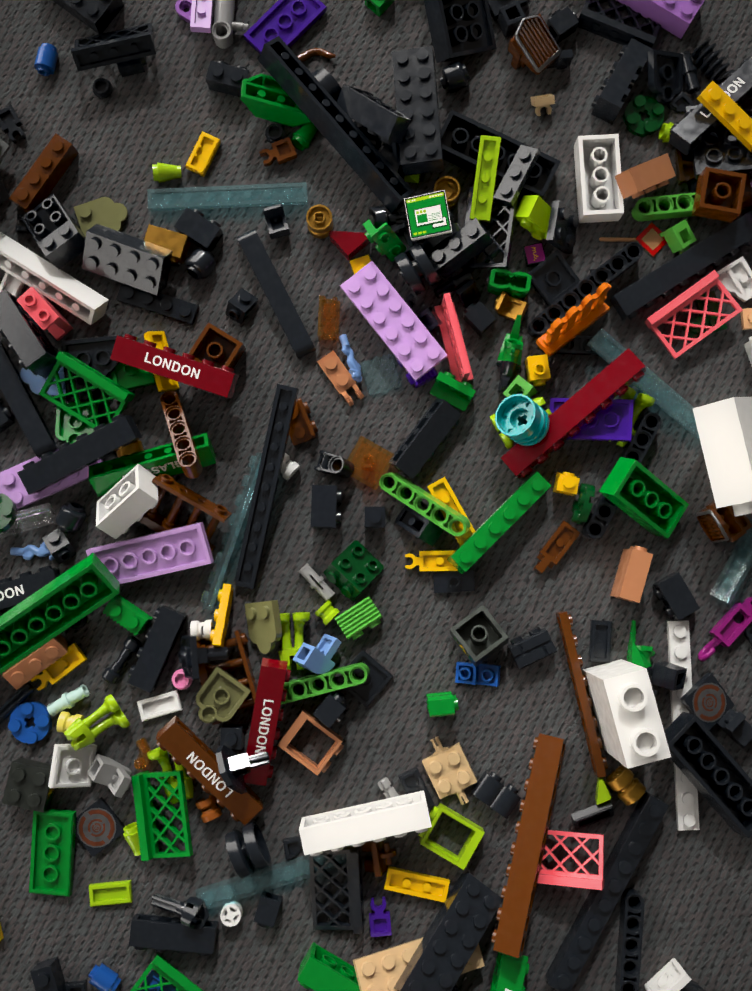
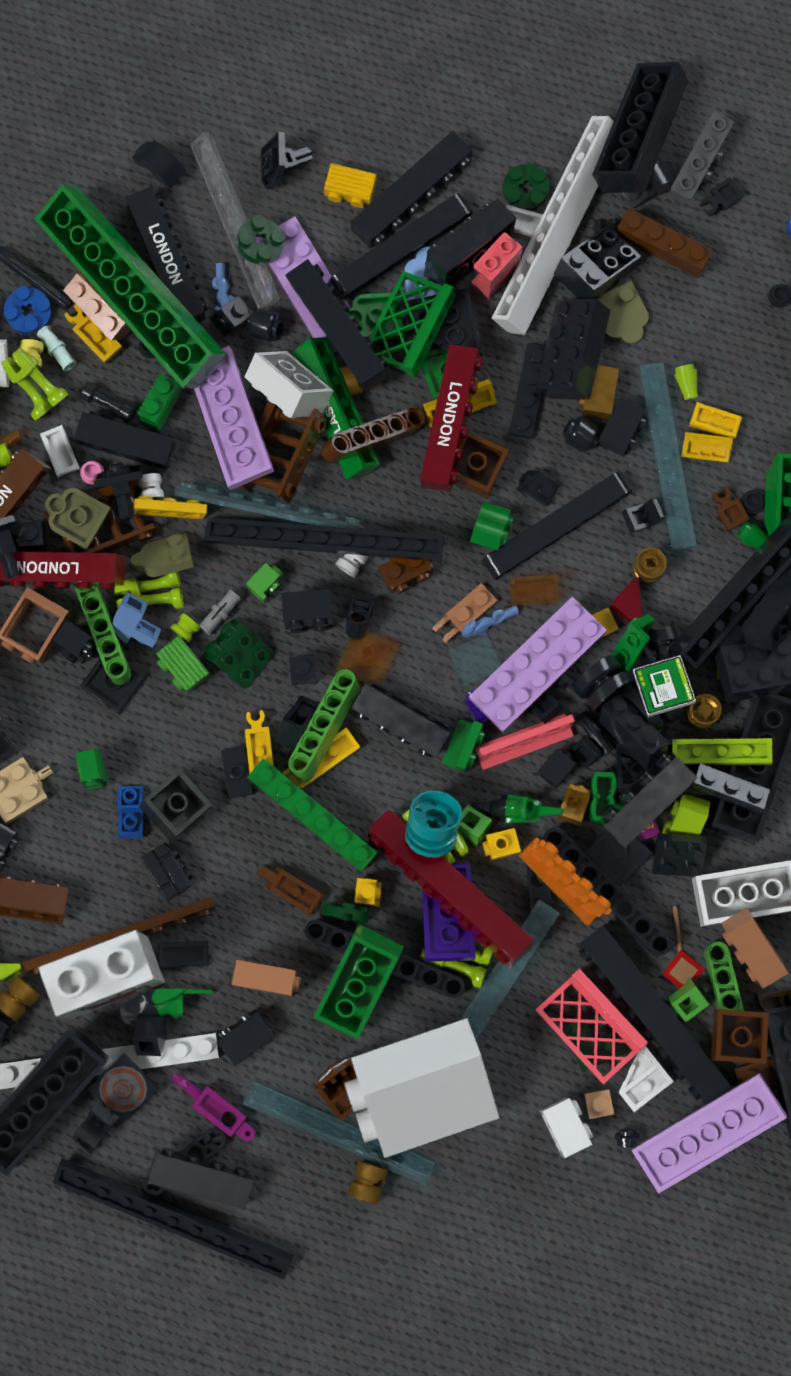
camera: 80 degrees right, 5 degrees down
(224, 163) = (706, 447): none -> yellow plate
(271, 345) = (491, 526): none -> green brick
(295, 541) = (265, 582): none -> bright green brick
(522, 239) = (647, 798): none -> black brick

